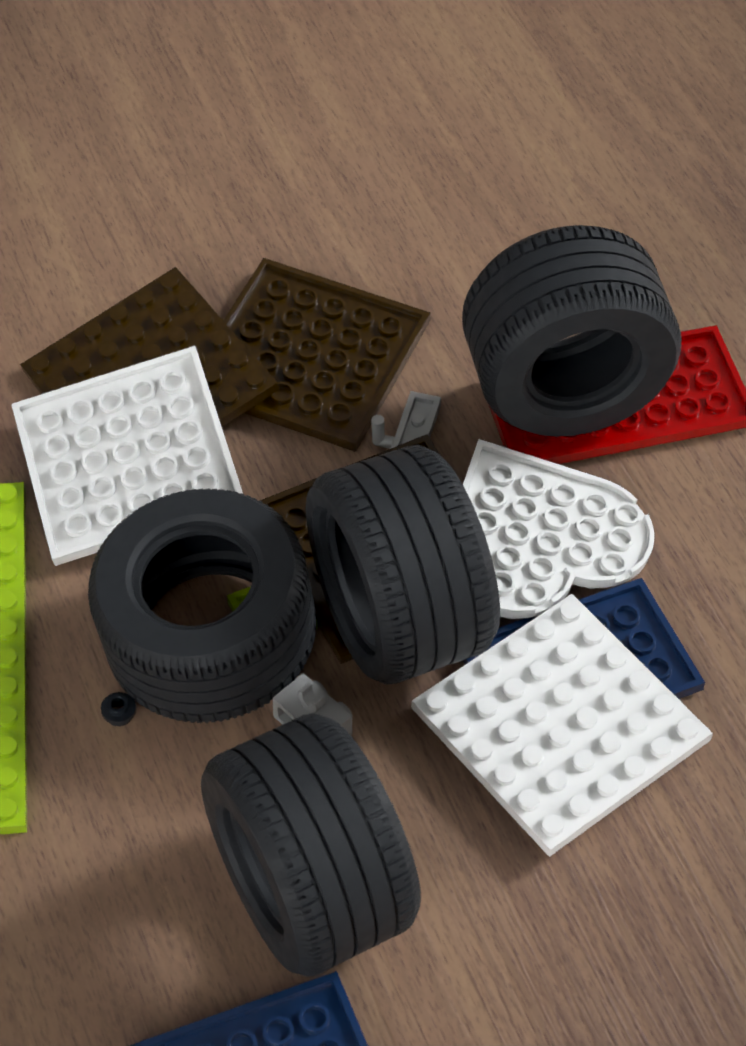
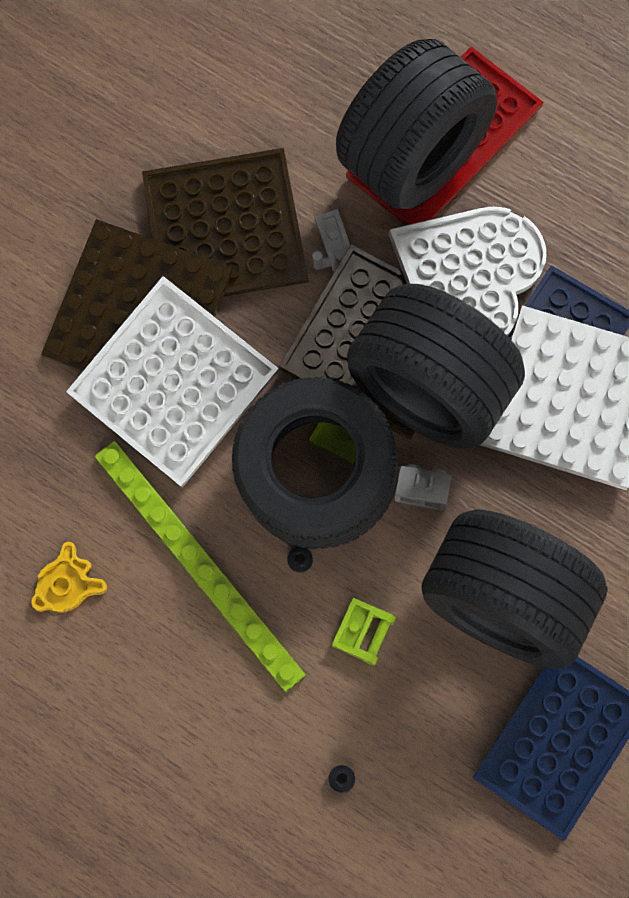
camera: 30 degrees left, 20 degrees up
(120, 811) = (354, 629): none -> lime plate

